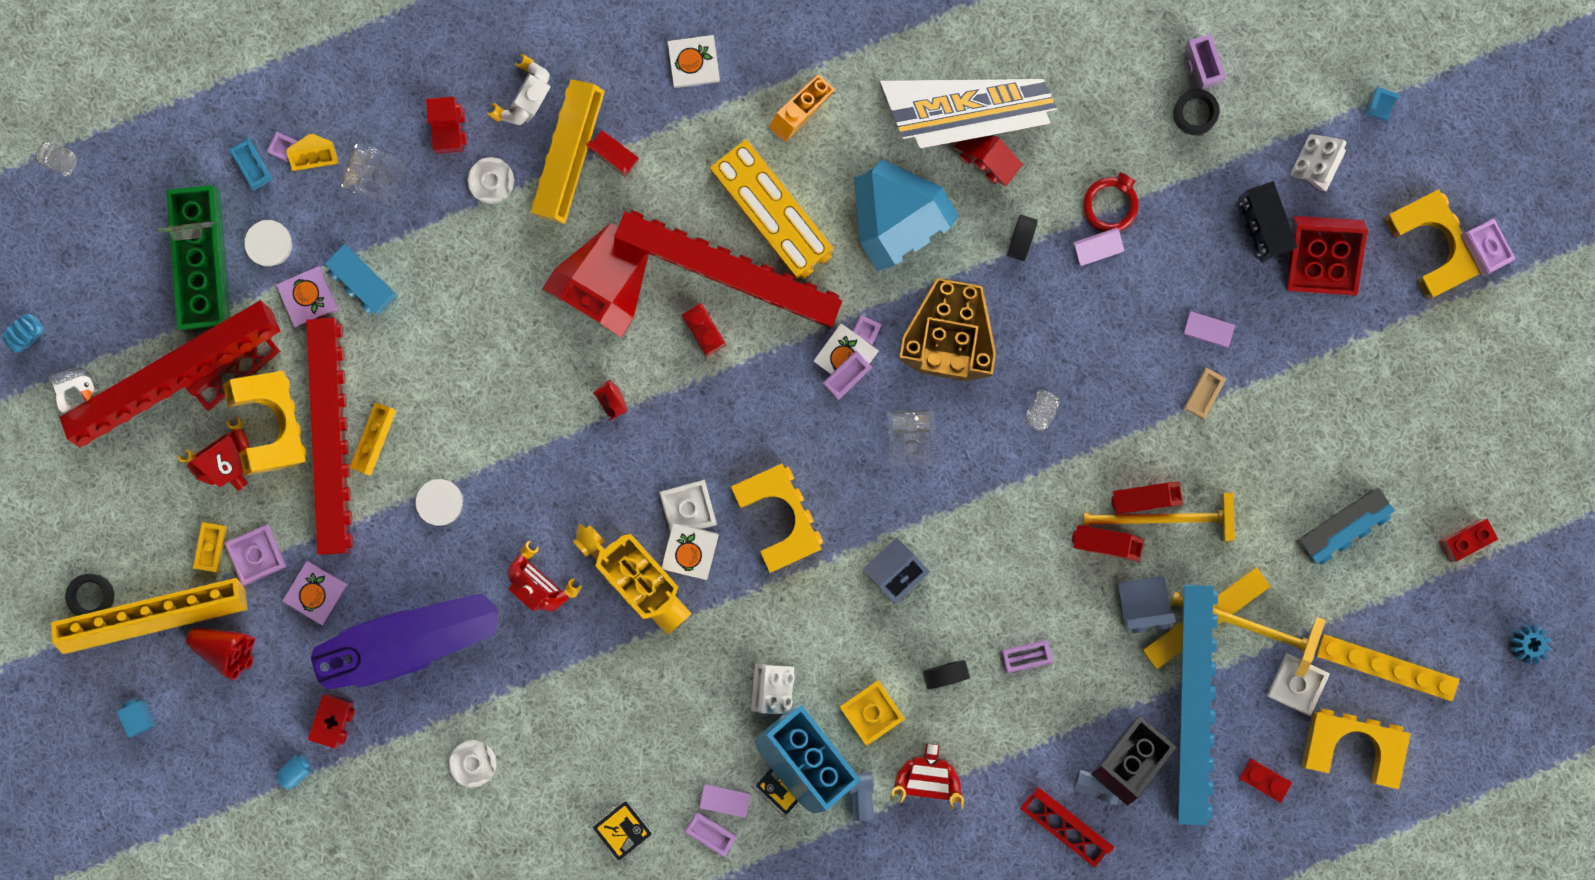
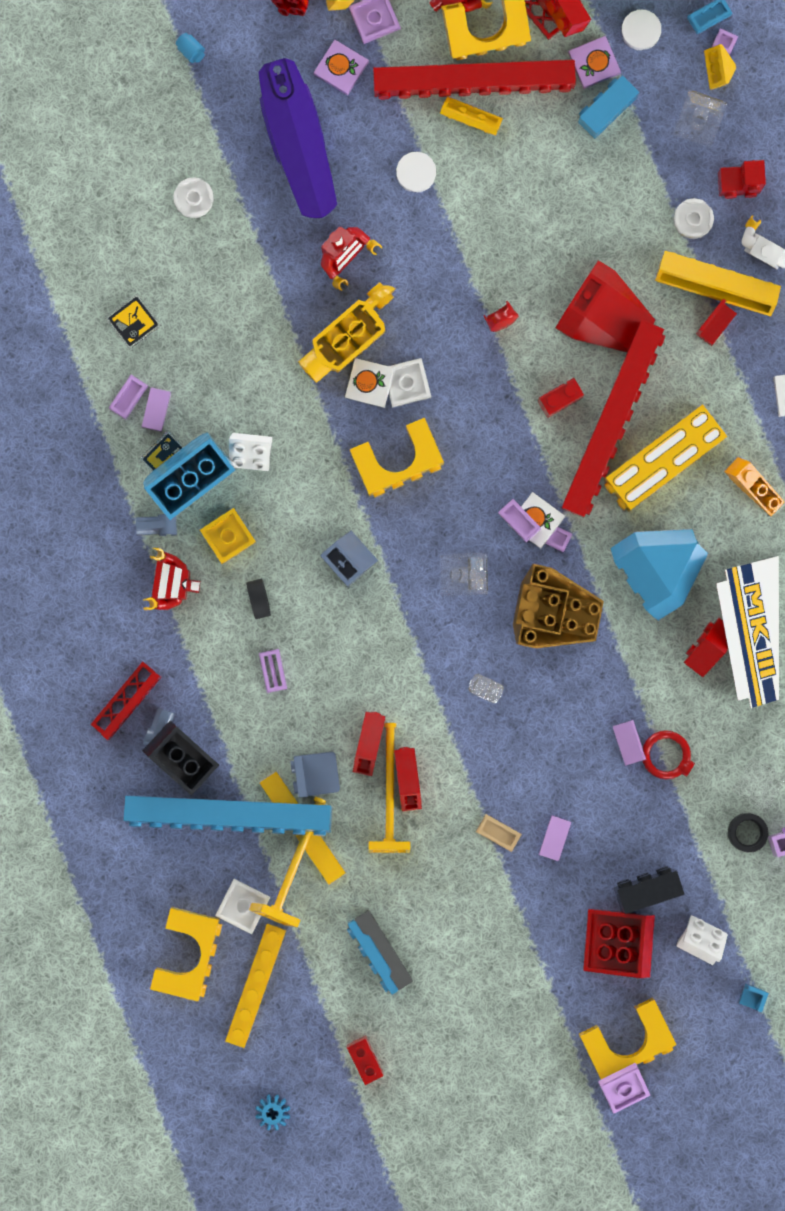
camera: 90 degrees right, 0 degrees up
(321, 729) = (226, 71): red brick -> none
(1022, 237) = (637, 674): black tyre -> none
(1265, 780) = (161, 874): red plate -> none

